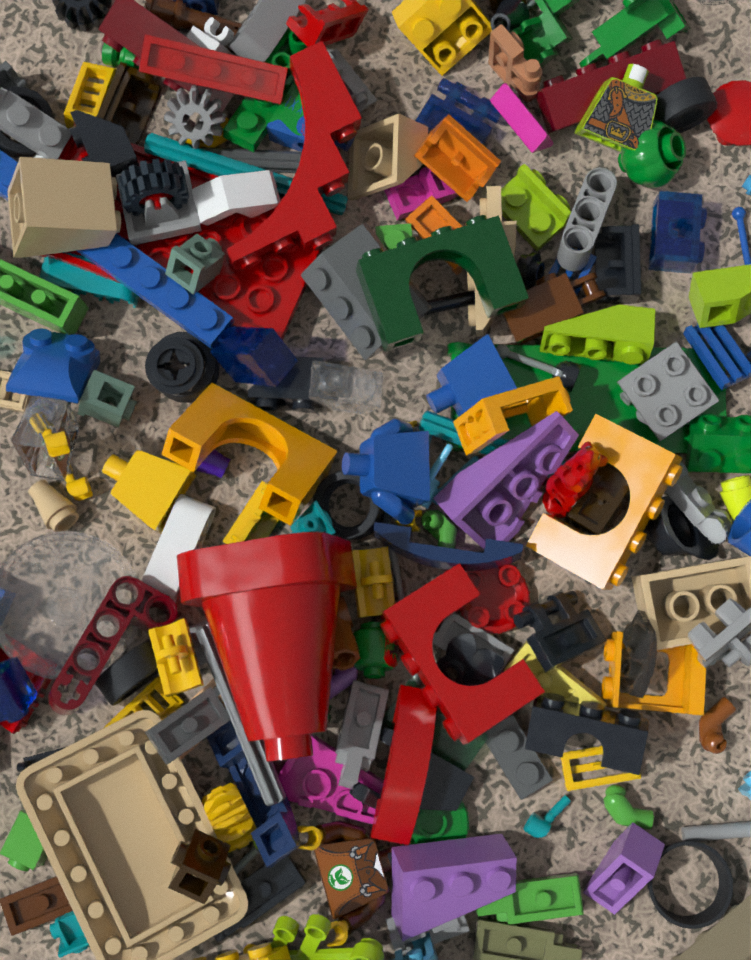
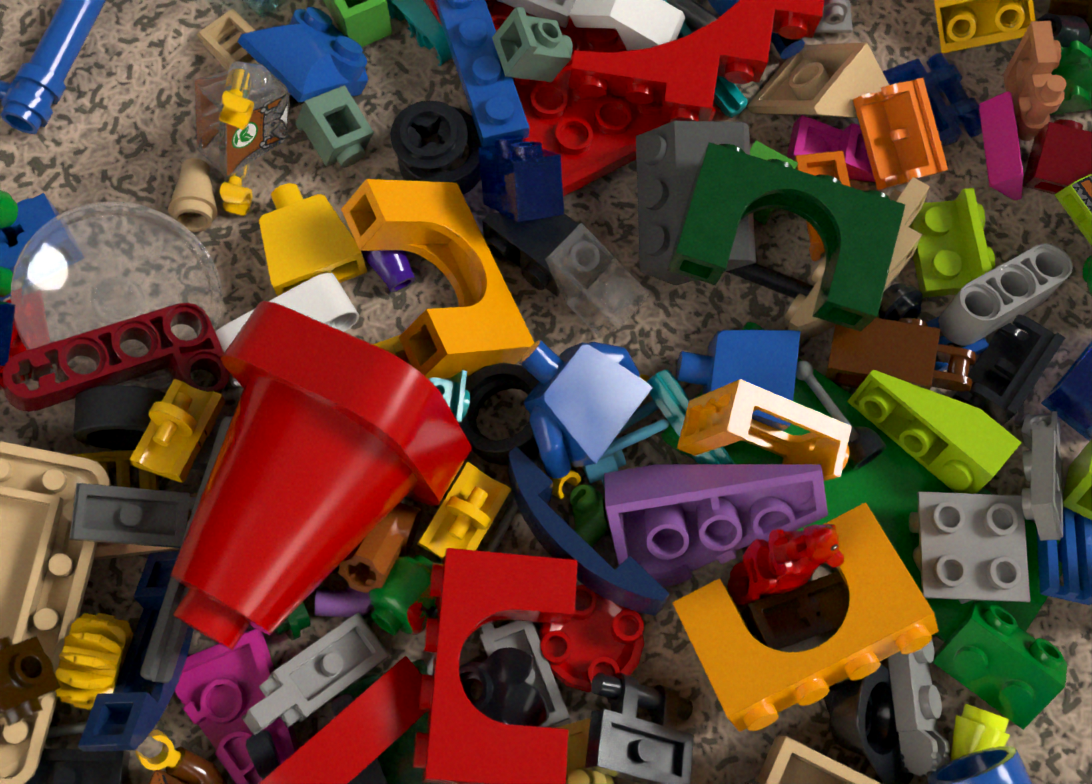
camera: 30 degrees right, 10 degrees down
(678, 315) = (1045, 470): none -> light grey hinge

